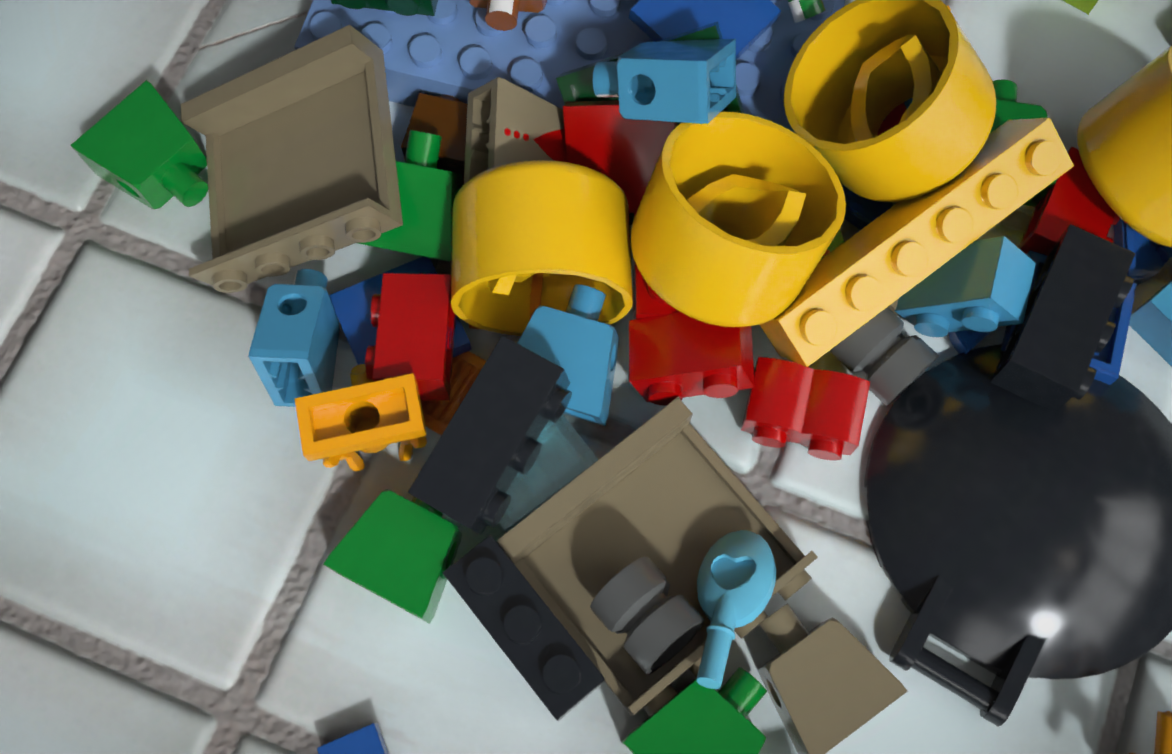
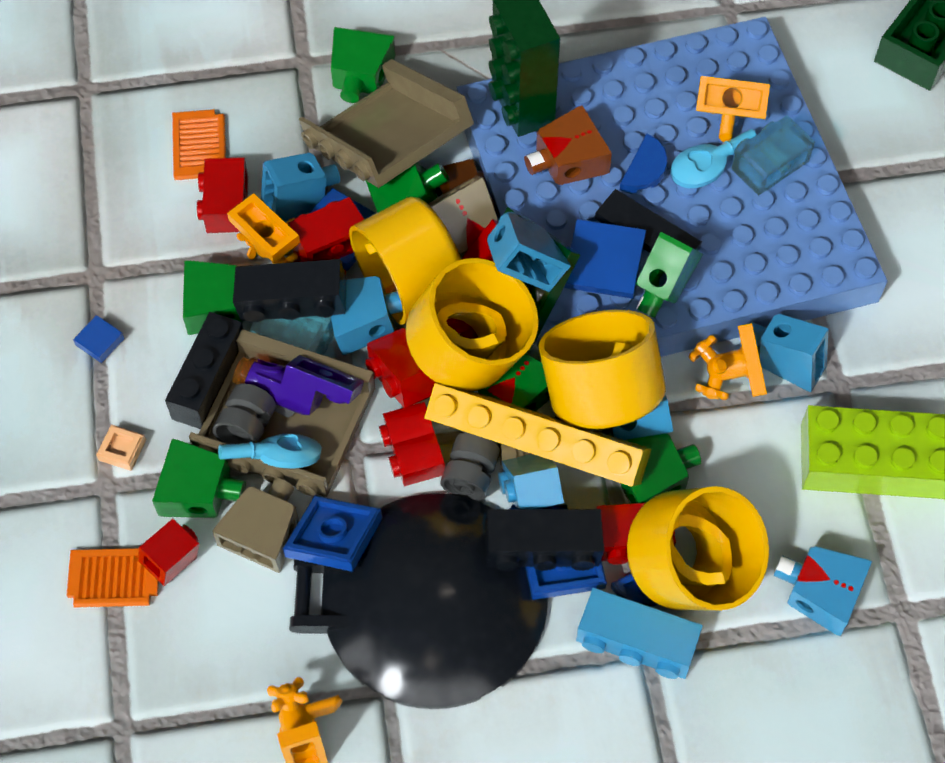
camera: 60 degrees right, 10 degrees down
(114, 440) = (196, 138): none -> orange window
(237, 446) = (223, 188): none -> red brick
(640, 510) = (299, 385): none -> dark purple plate
(894, 587) = (333, 533): none -> blue tile

